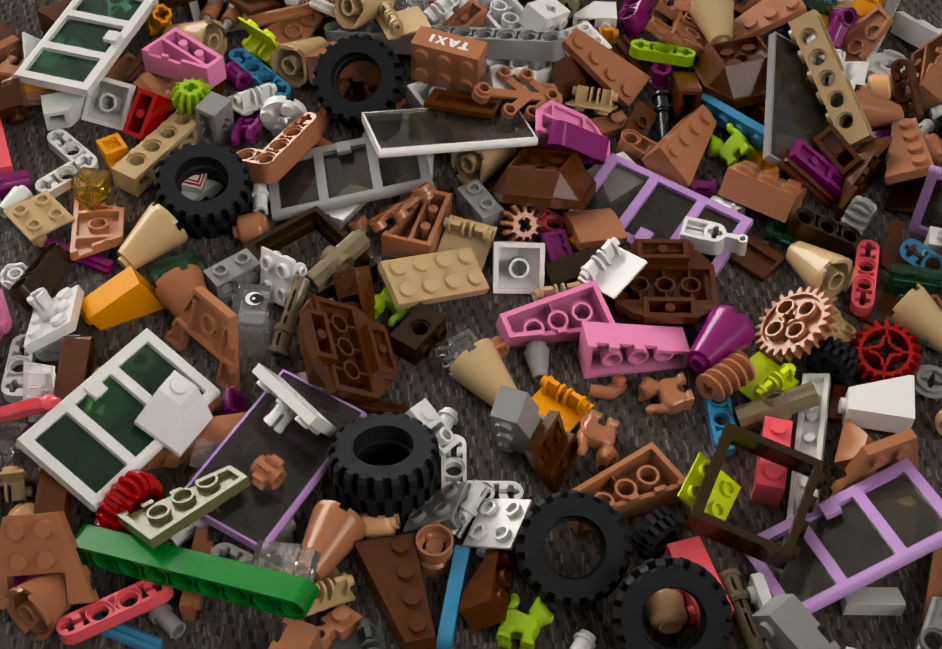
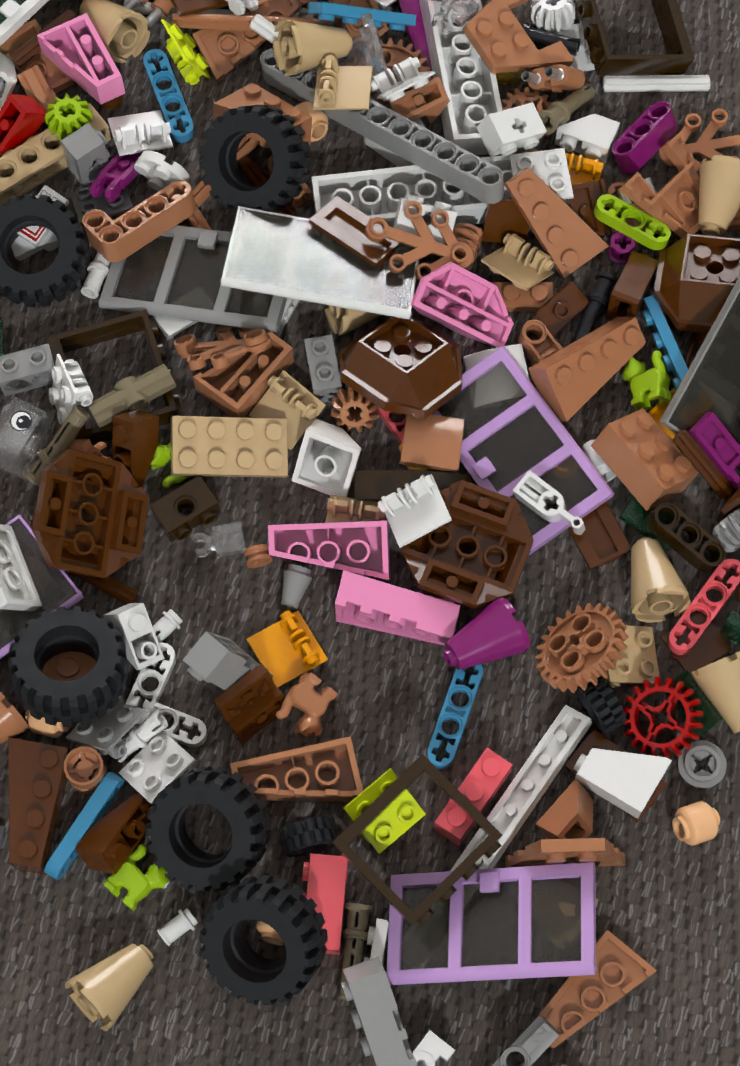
camera: 25 degrees right, 20 degrees up
(237, 76) = (140, 90): magenta bush -> none
(250, 227) = (70, 312): nougat head -> none
(290, 59) = (212, 85): tan cone -> none
(448, 59) = (362, 168): nougat brick -> none
(482, 371) = (228, 591): tan cone -> none
(556, 244) = (383, 449): magenta plate -> none
(570, 137) = (458, 329): magenta beam -> none
(611, 390) = (354, 648): nougat arm -> none
(669, 393) = (408, 681): nougat animal -> none
(711, 185) = (587, 423): magenta bush -> none
(725, 377) = (472, 684): nougat piece -> none
(768, 377) = (520, 695): neon yellow hinge -> none
(777, 404) = (510, 736): dark tan piece -> none
(874, 601) = (499, 992): white slope -> none

